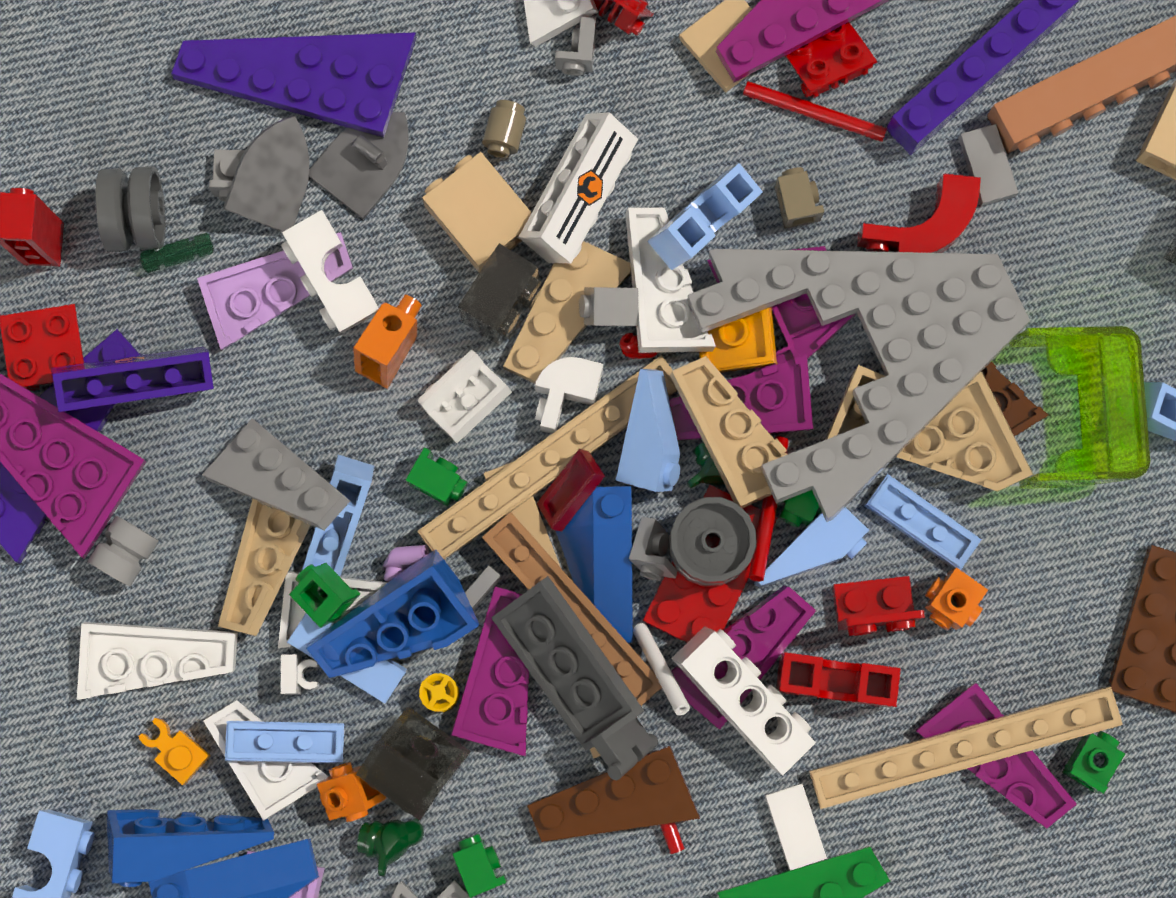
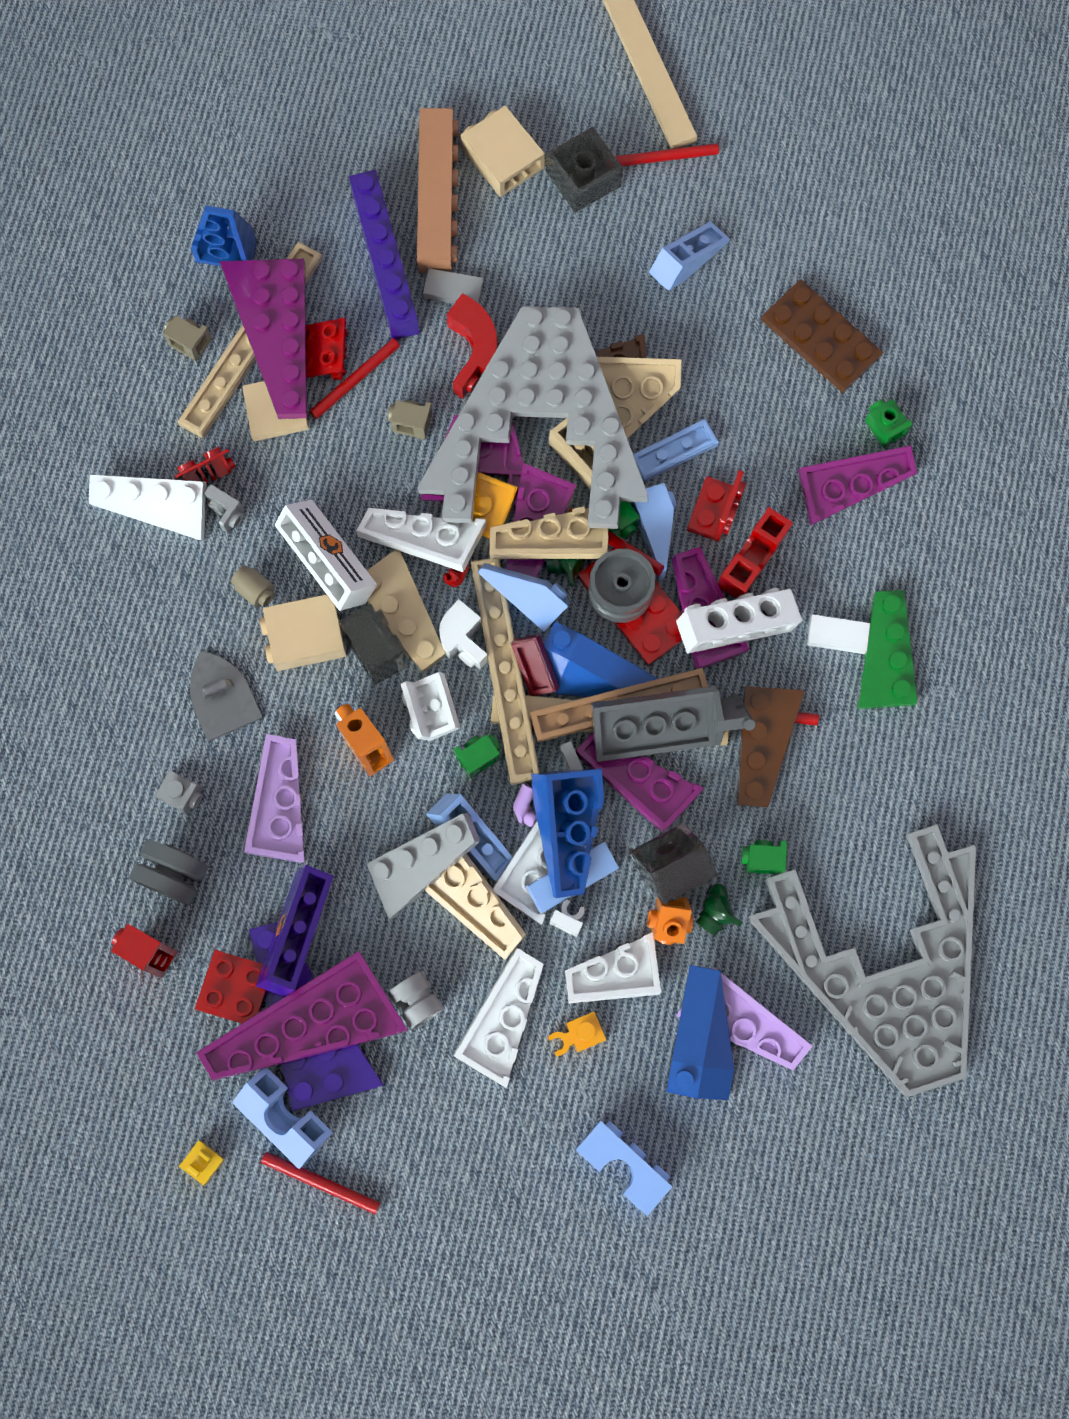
camera: 65 degrees left, 5 degrees down
(153, 847) = (645, 1076): blue wedge -> none
(177, 252) = (216, 859): clear green axle -> none
(272, 176) = (199, 762): flat silver shield -> none
(284, 742) = (612, 950): light blue tile -> none
(311, 244) = (267, 757): white arch -> none
(321, 77) = (143, 695): dark purple wing -> none
(323, 594) = (527, 876): green brick -> none
(434, 689) = (634, 822): yellow wheel -> none
(609, 306) = (420, 575): light grey brick -> none
(649, 547) = (602, 633): light grey bracket -> none
(661, 669) = (691, 664): white piece -> none
(704, 216) = (396, 493): light blue arch -> none
(966, 593) = (738, 452): orange brick -> none
(966, 747) = (839, 497): tan tile -> none
(1109, 403) = (658, 291): clear neon green windscreen -> none

